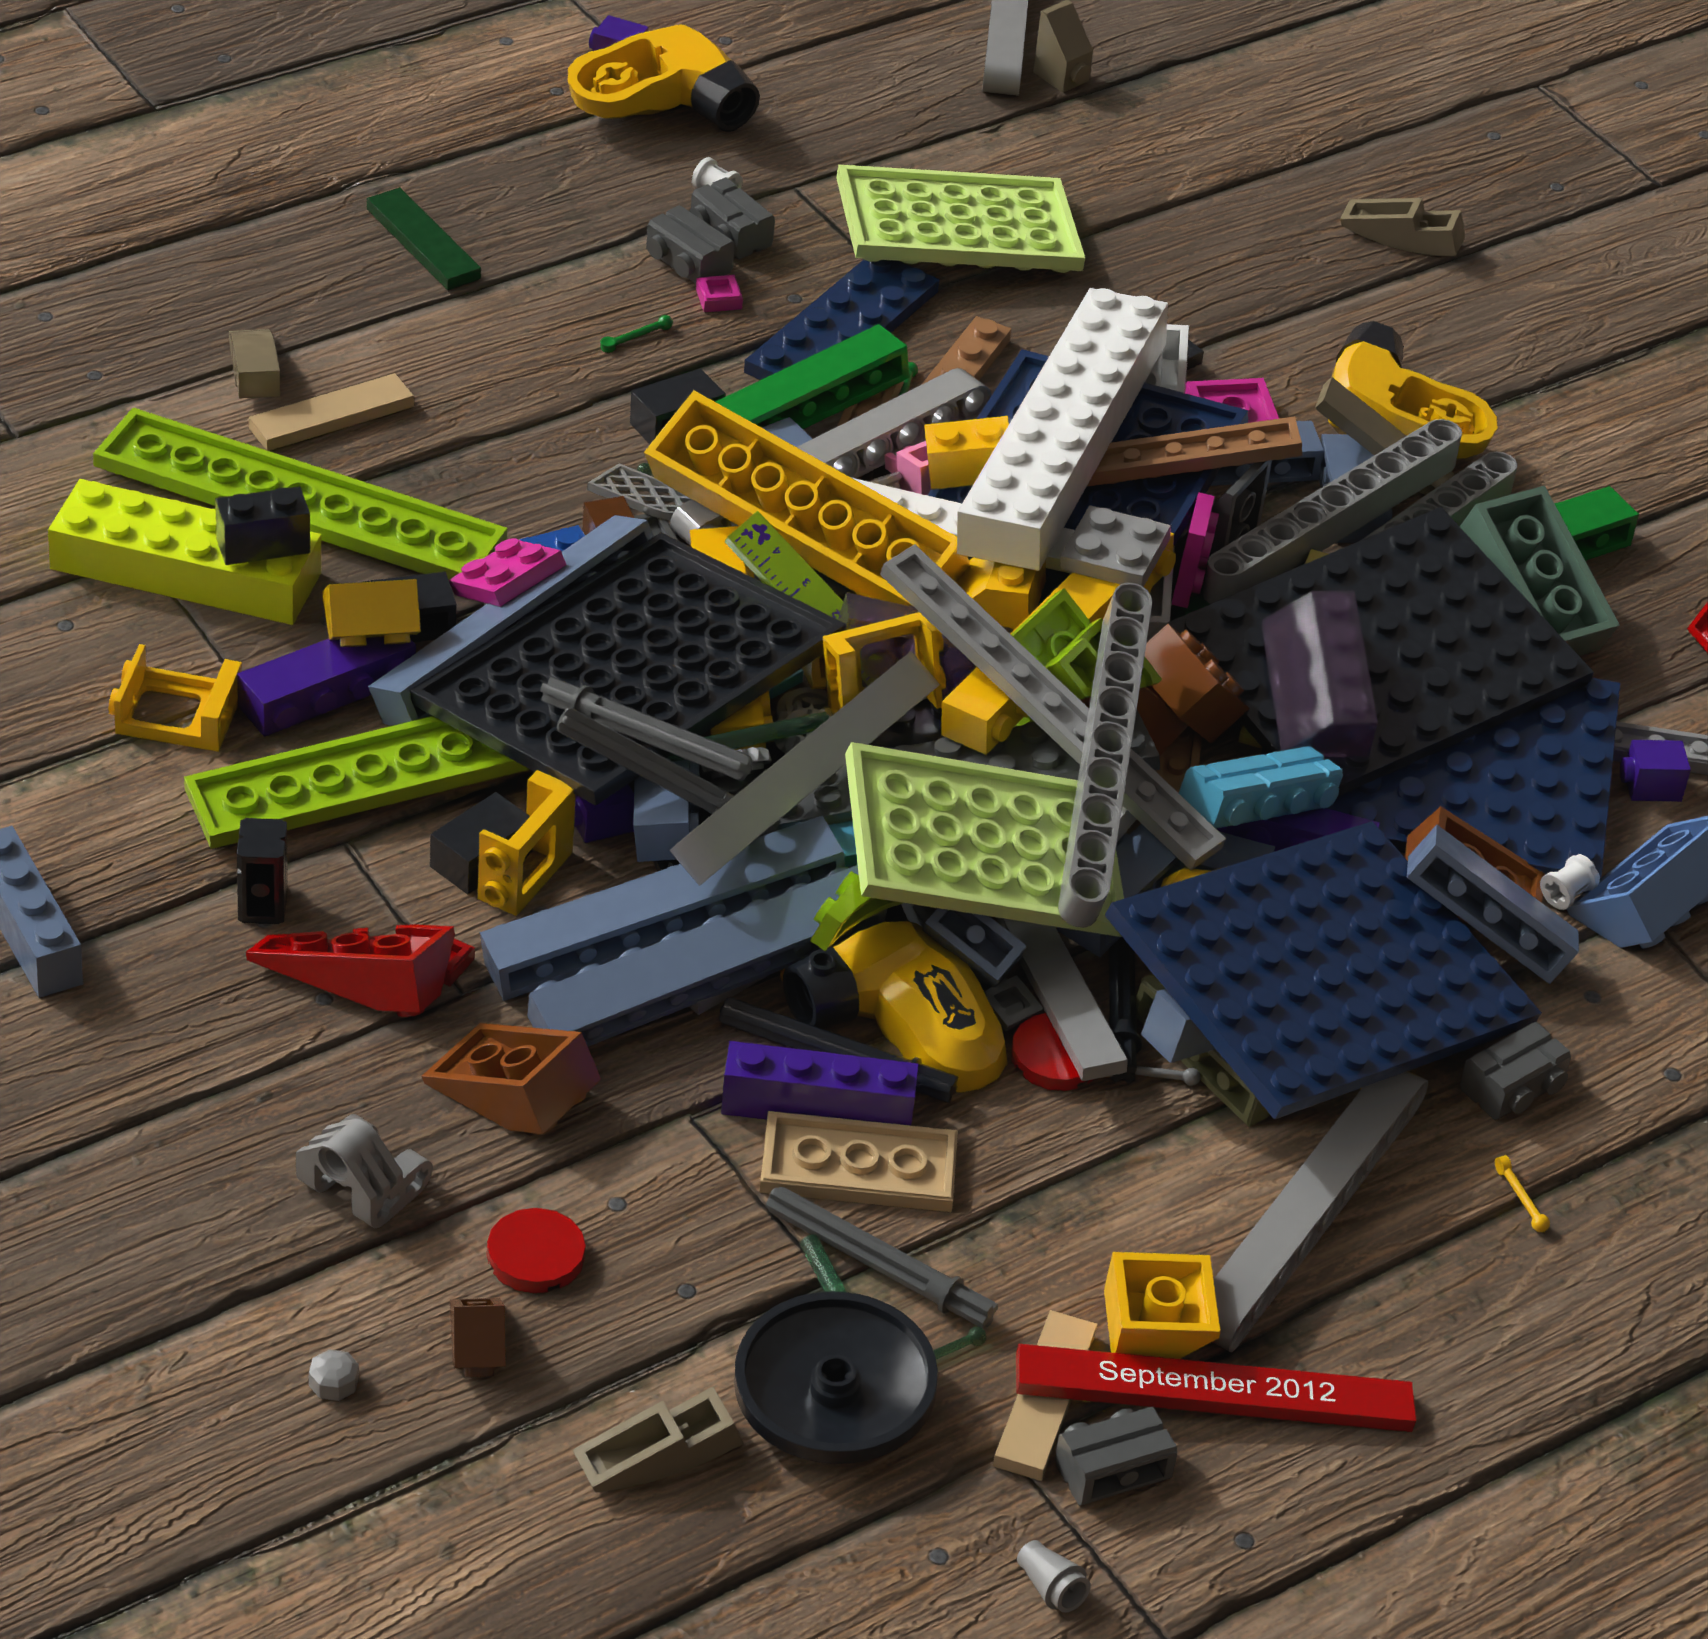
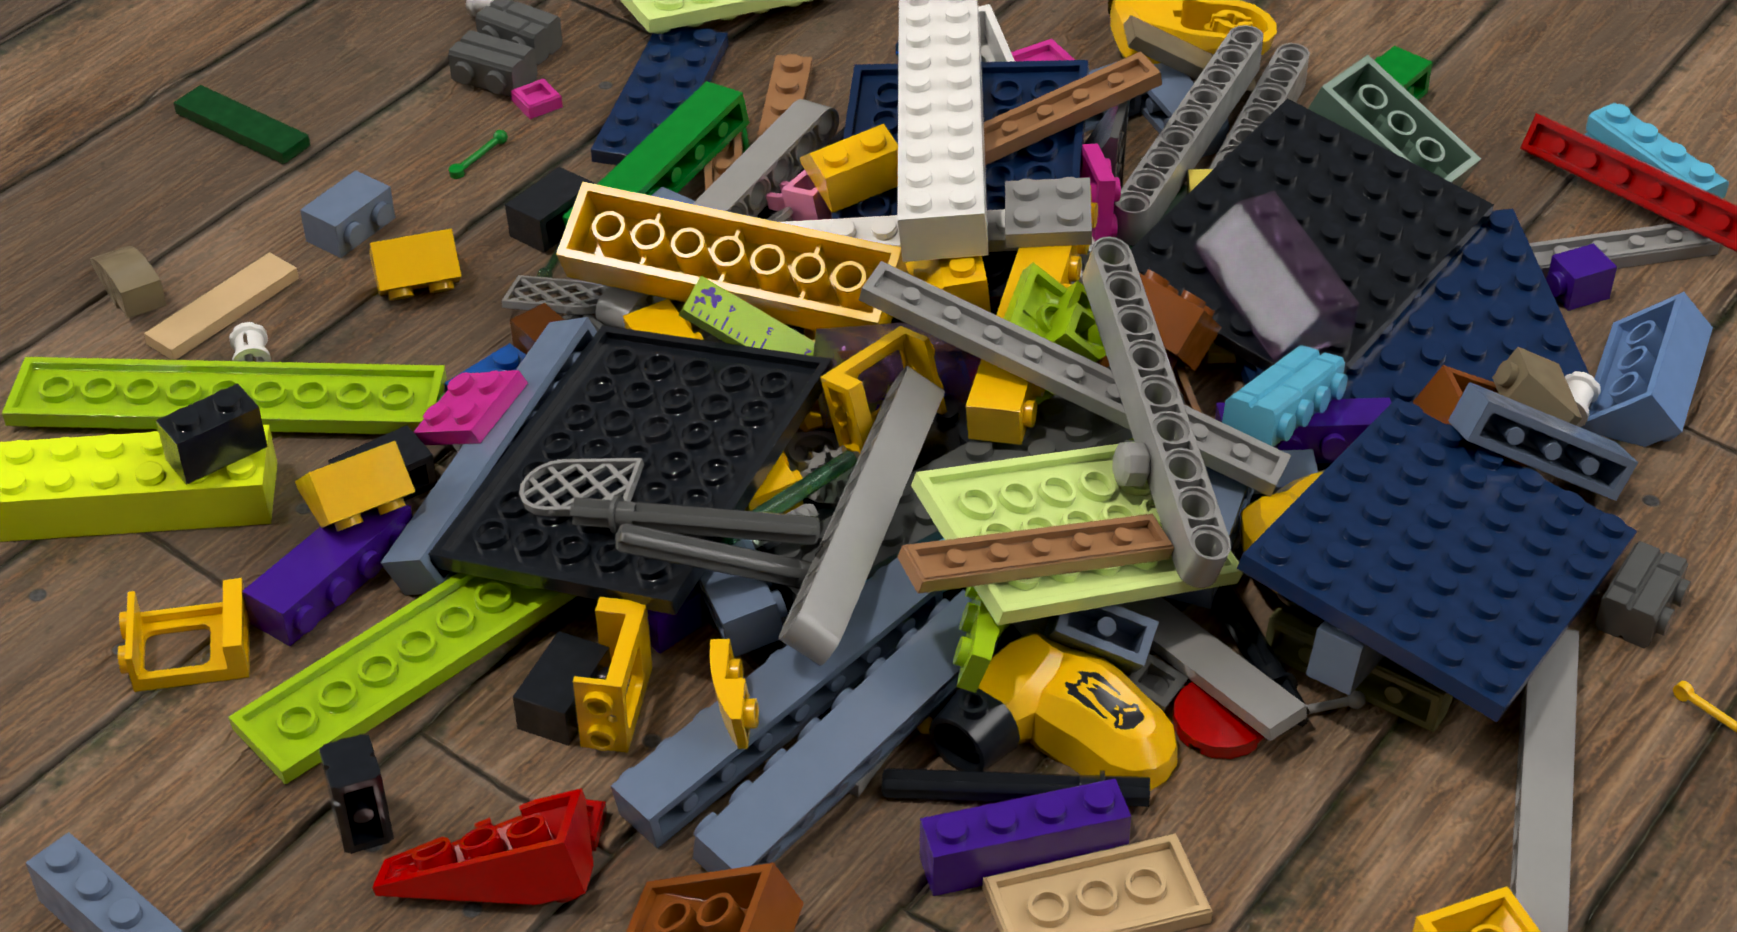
camera: 15 degrees left, 0 degrees up
(343, 459) = (256, 338): none -> white bush
(483, 357) = (348, 214): none -> sand blue brick
(523, 423) = (415, 263): none -> yellow slope
(611, 878) = (736, 707): none -> yellow slope
(618, 666) = (630, 465): none -> light grey window
(926, 845) = (1034, 553): none -> medium nougat tile
(1061, 797) = (1131, 464): none -> light grey tile
(1526, 854) = (1537, 384): none -> dark tan slope

